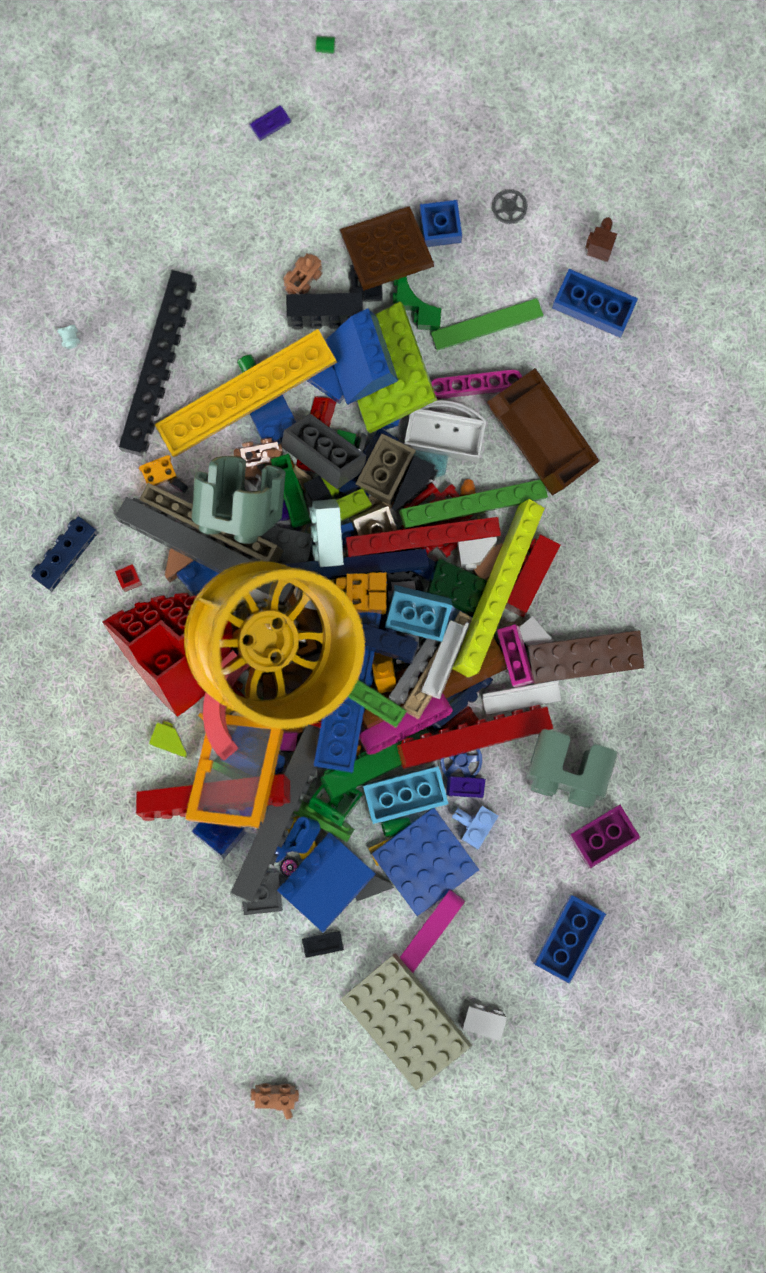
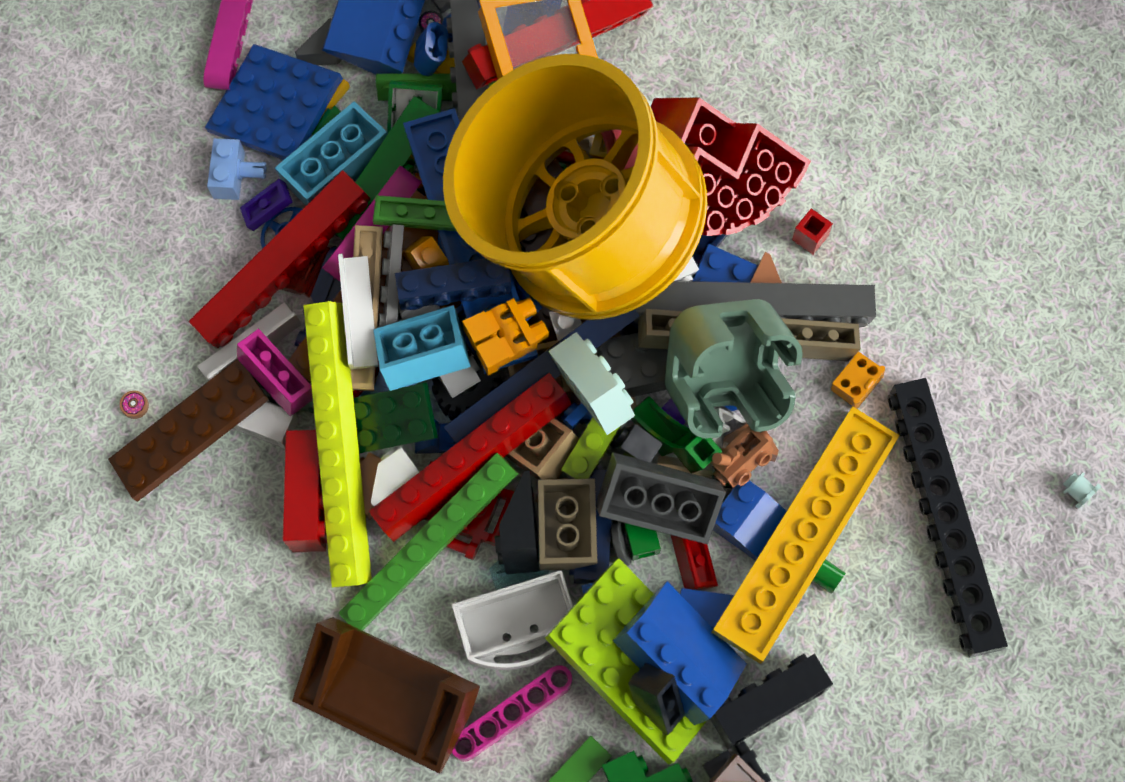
camera: 155 degrees right, 10 degrees down
(64, 553) = (907, 223): dark blue brick -> none
(168, 739) = (653, 79): lime slope -> none
(179, 485) = (821, 376): black tile -> none
(306, 270) = (828, 749): nougat brick -> none
(391, 336) = (657, 697): none -> black slope
(467, 487) = (449, 567): orange hose -> none
(548, 772) = (119, 259): sand green piece -> none
(569, 939) = (58, 102): blue brick -> none
(604, 836) = (67, 231): magenta brick -> none
(612, 697) = (134, 404): none -> tile

